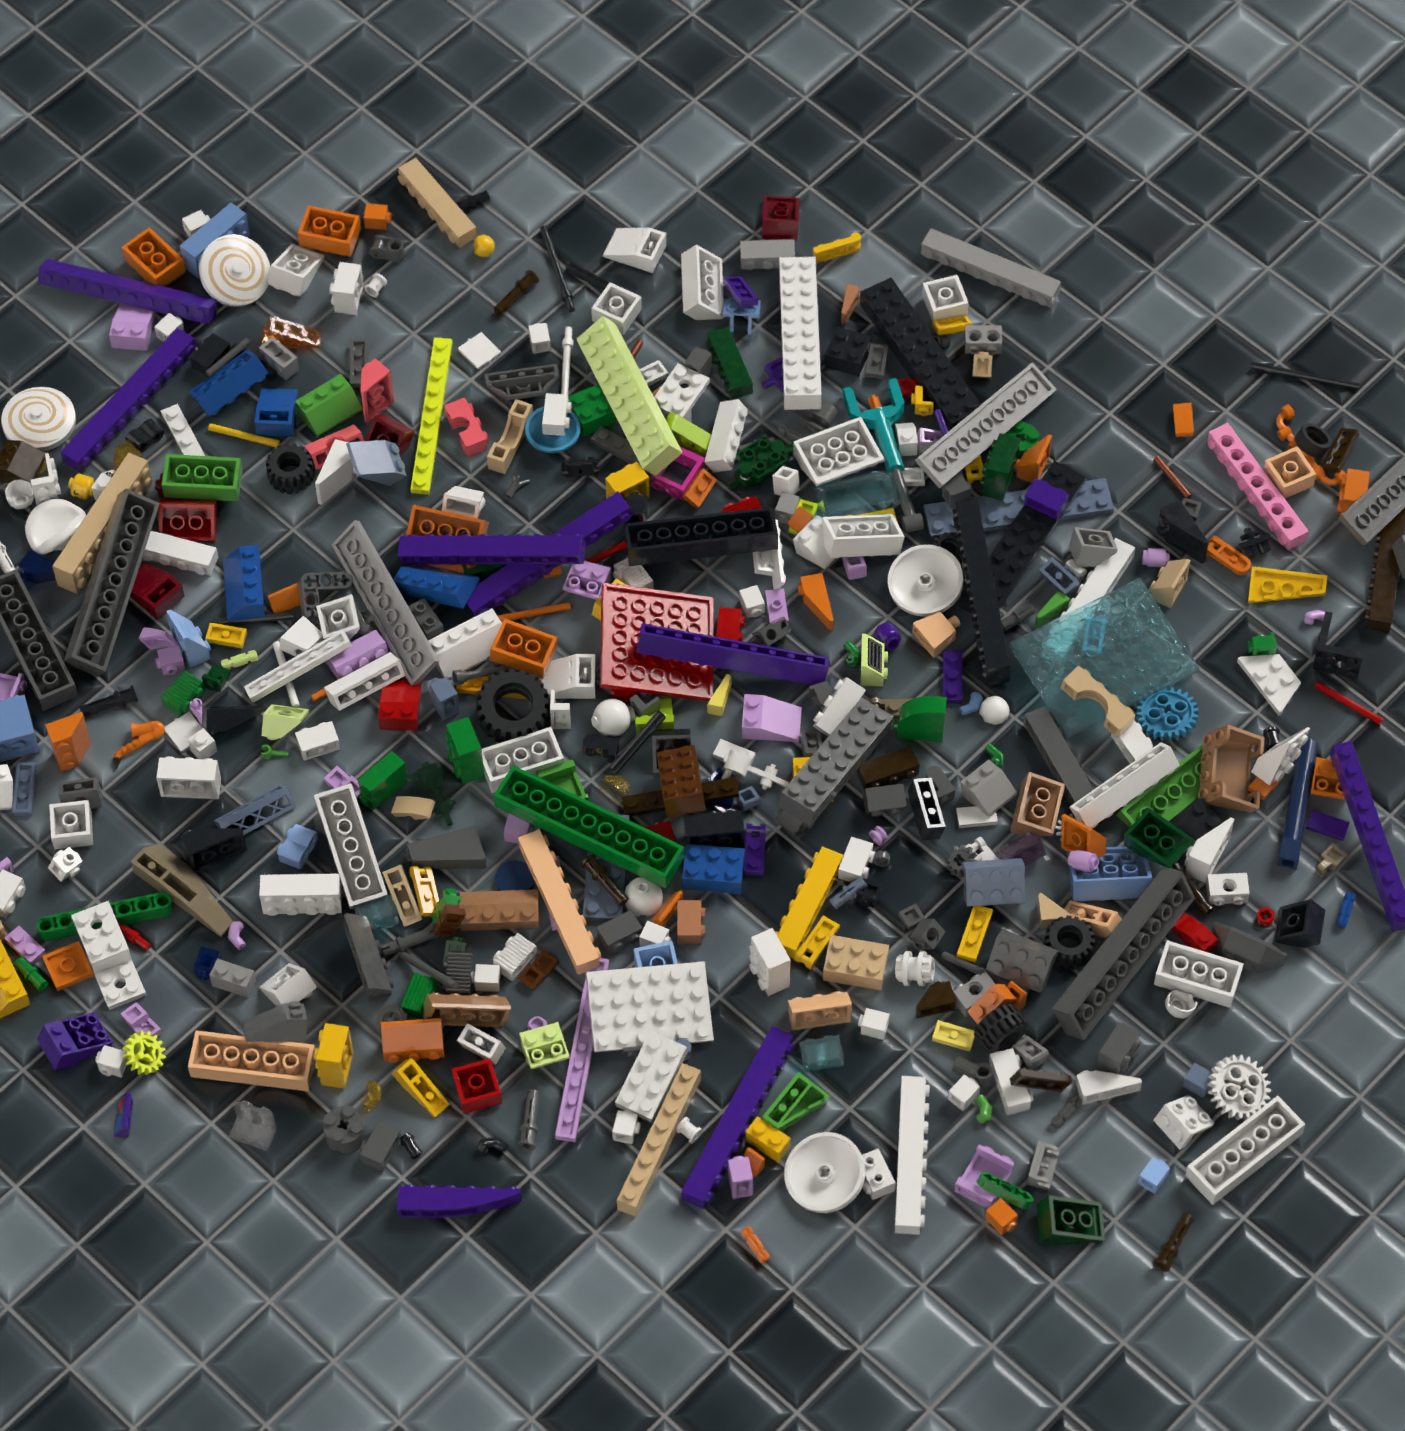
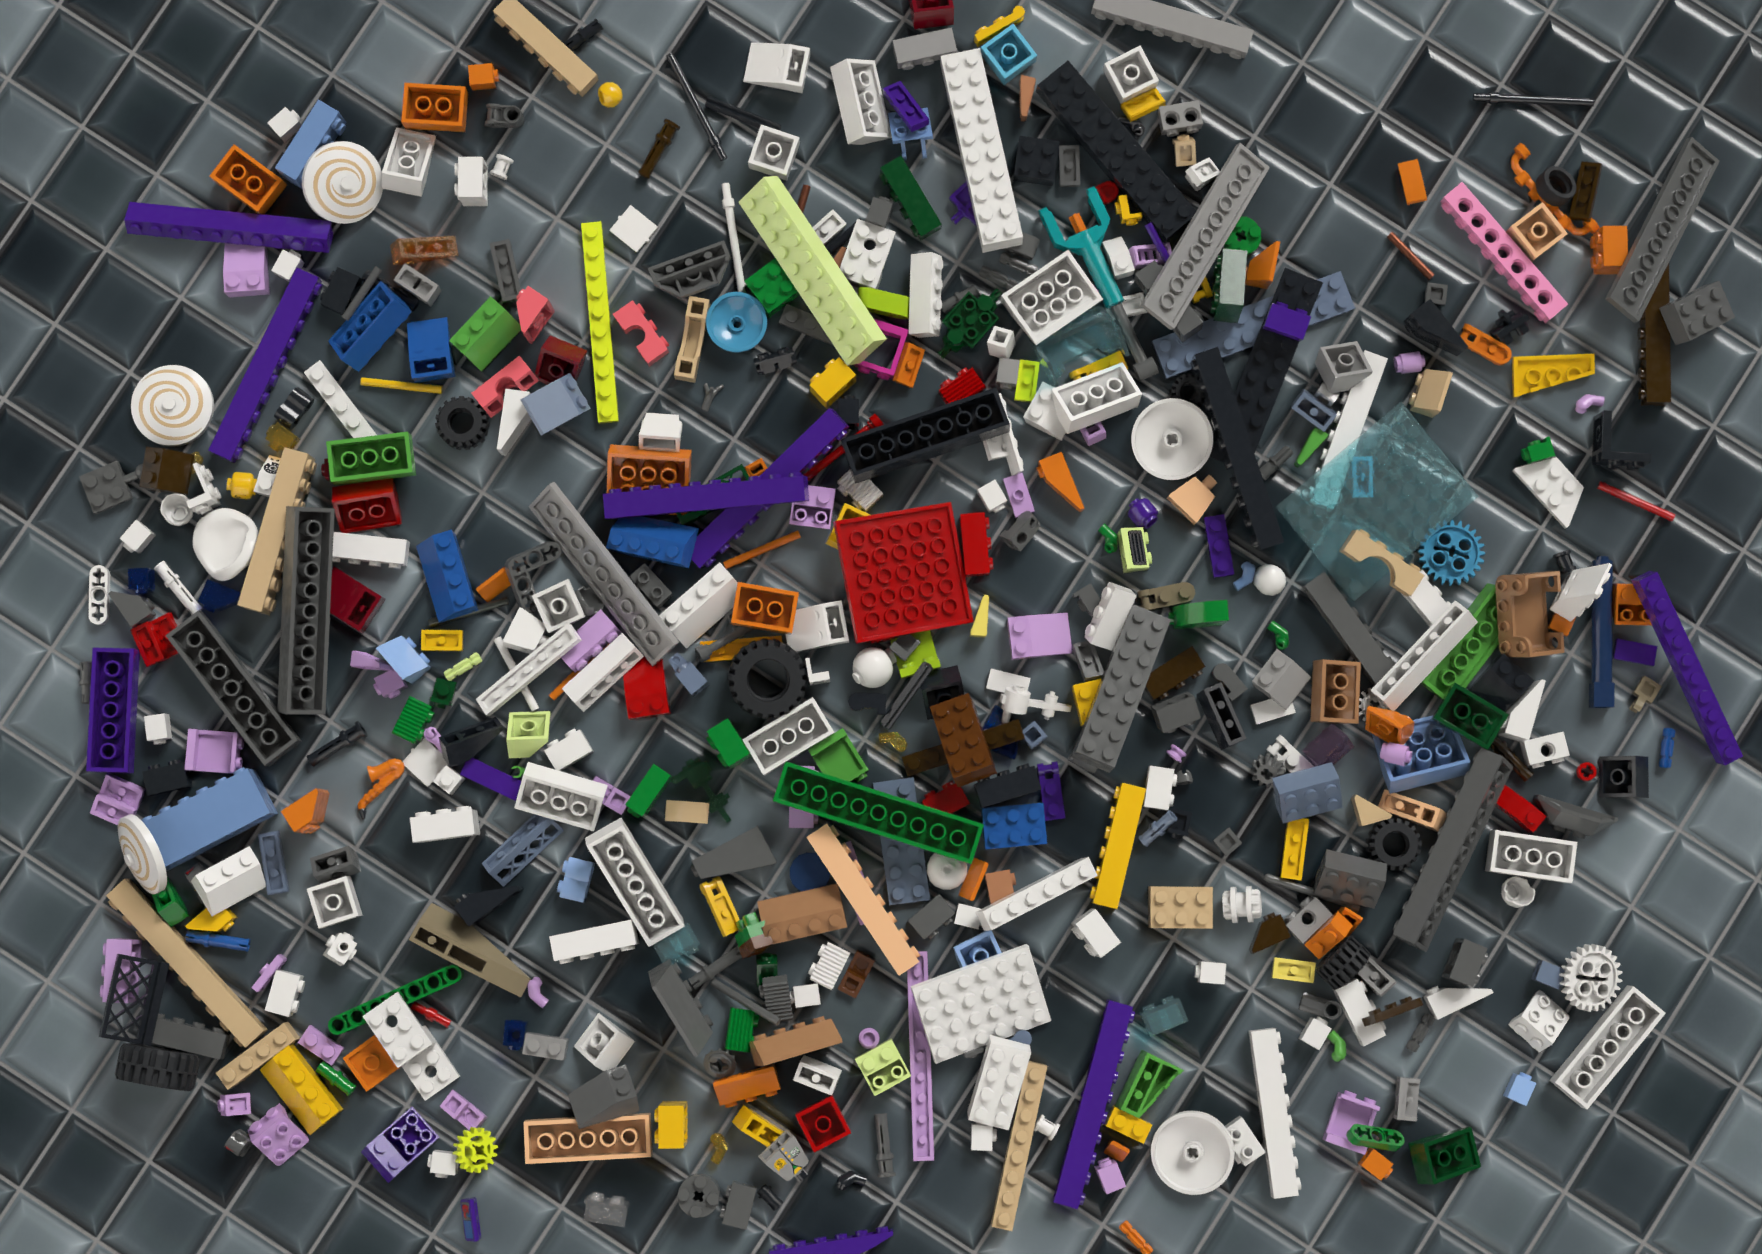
camera: 15 degrees left, 25 degrees up
(249, 759) = (491, 778): none -> dark purple tile
(299, 768) = (560, 796): none -> white brick
(402, 895) = (697, 915): tan slope -> none
(434, 1110) = (786, 1157): none -> light grey torso
(539, 338) = (696, 203): white brick -> none
(555, 414) = (737, 308): white brick -> none
(598, 874) = (898, 858): dark brown pin -> none
(721, 921) = (1036, 894): none -> white brick
(732, 654) = (987, 576): dark purple brick -> none
(799, 519) = (1025, 390): orange slope -> none
(816, 942) = (1135, 888): yellow plate -> none
(819, 1010) = (1153, 968): light nougat slope -> none
(840, 267) = (1008, 54): none -> medium azure brick
(927, 934) = (1247, 862): dark grey brick -> none
(991, 383) = (1201, 173): none -> white slope
(1170, 1249) = (1547, 1167): dark brown pin -> none

